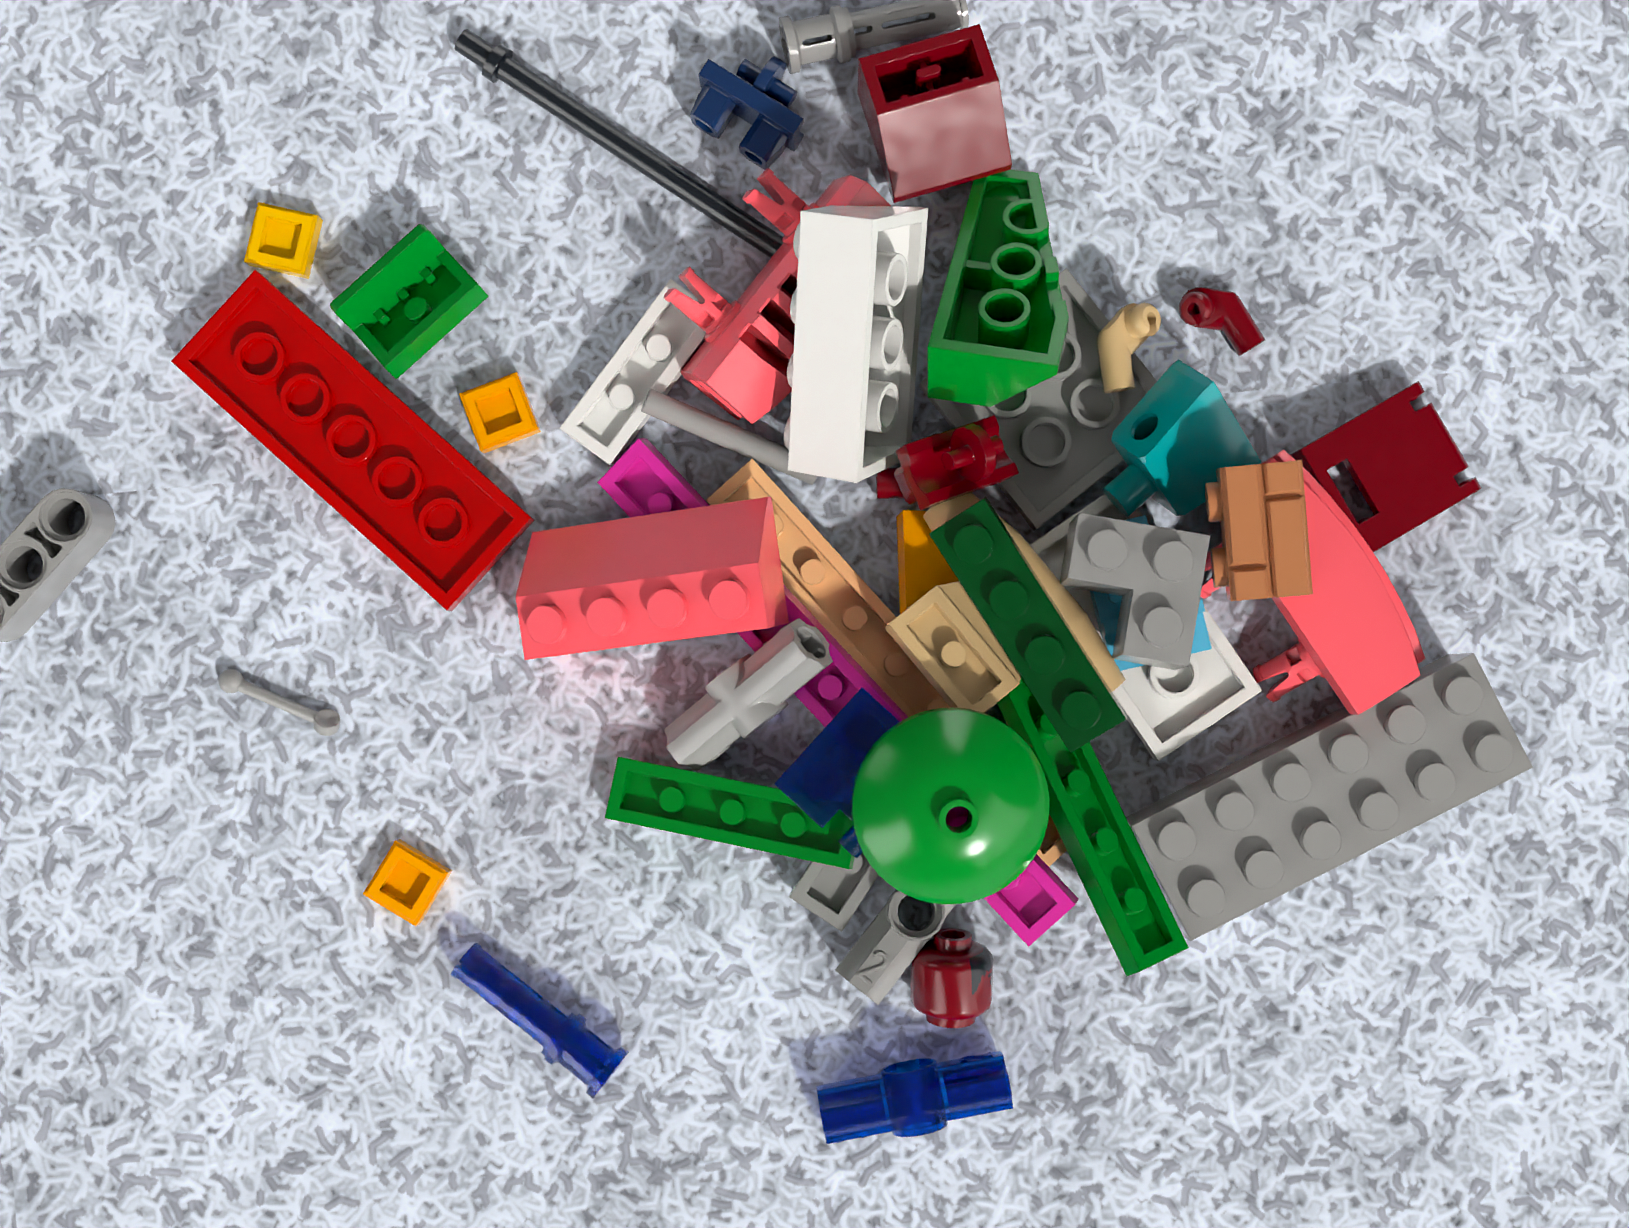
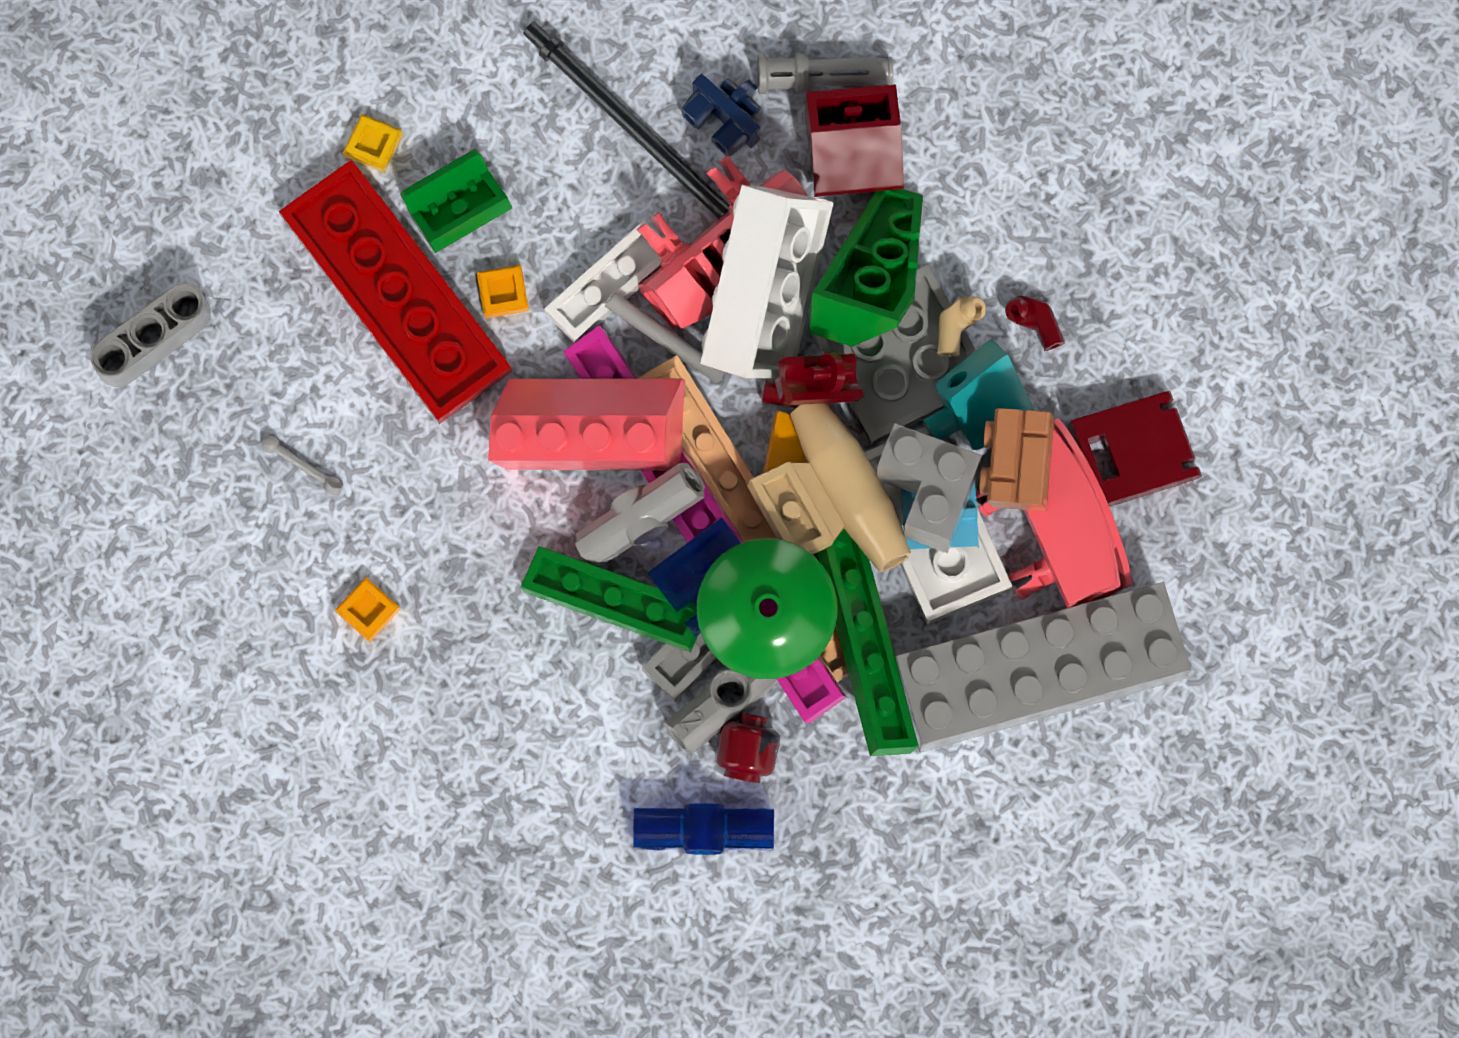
camera: 15 degrees right, 10 degrees down
(562, 1036) = (457, 737): clear blue pin -> none
(1028, 625) = (846, 497): dark green plate -> none

